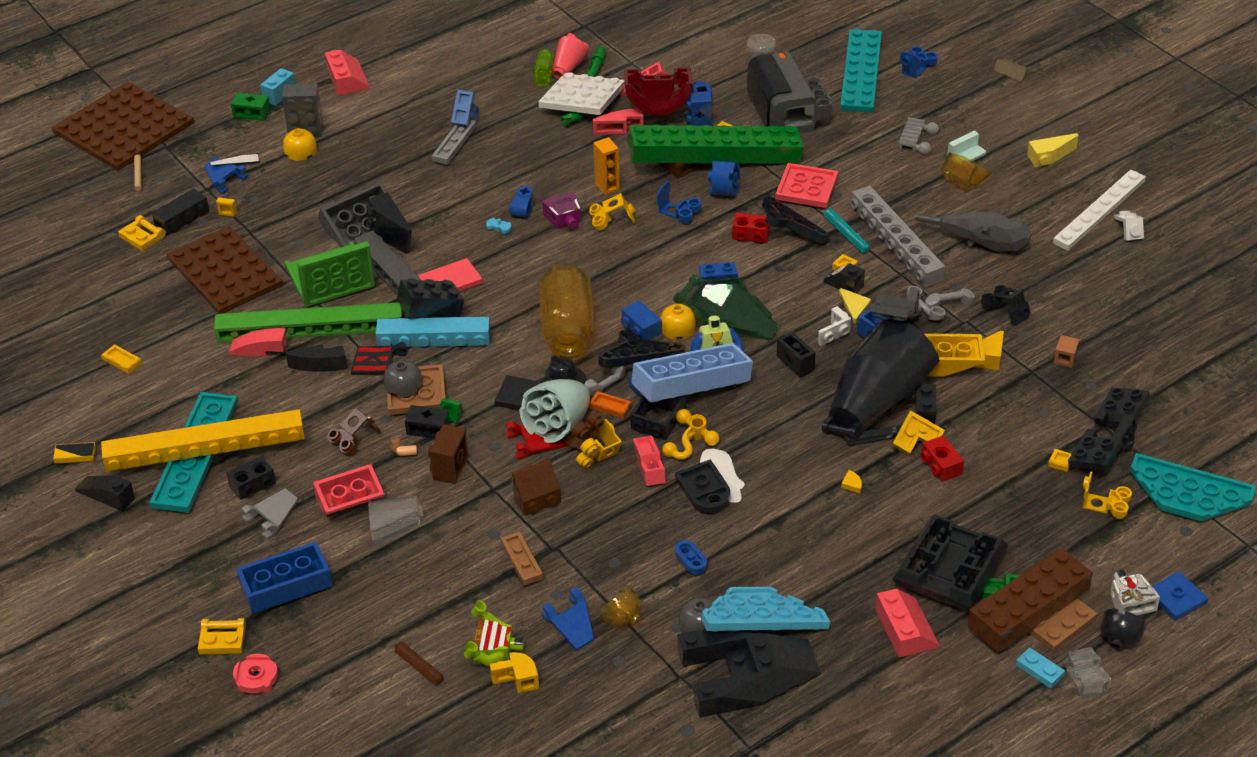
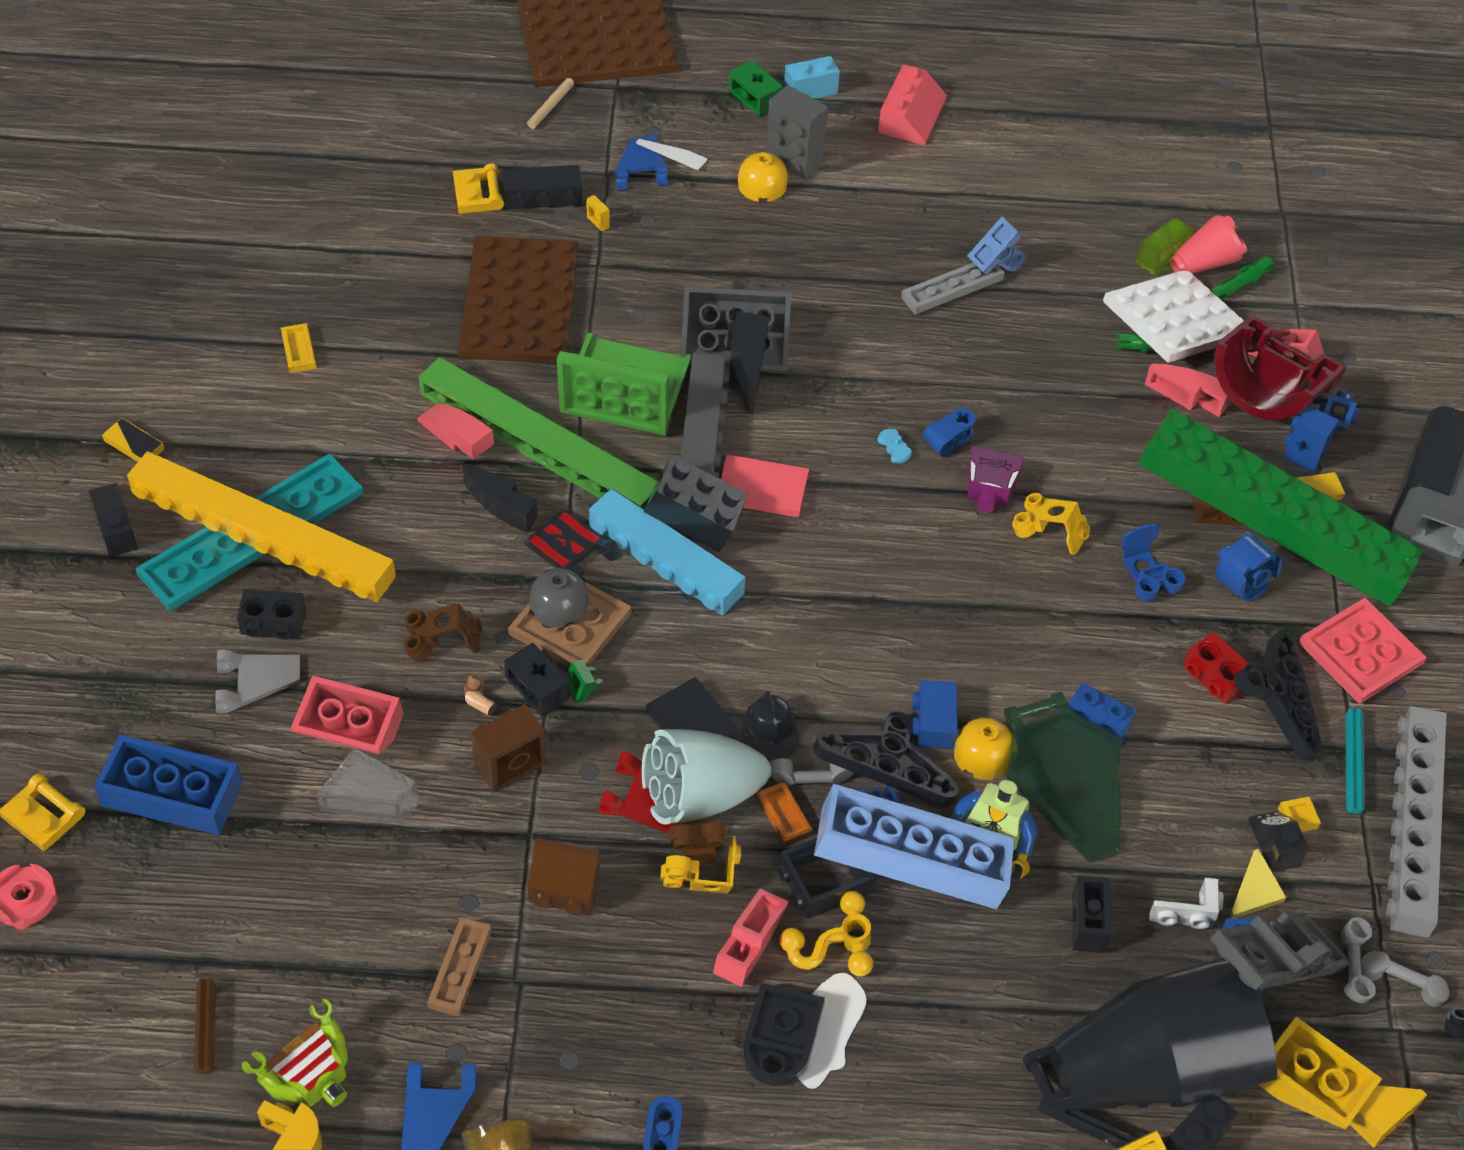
camera: 35 degrees right, 10 degrees up
(566, 309) = (842, 635): clear yellow piece -> none
(606, 166) = (1097, 448): light orange brick -> none

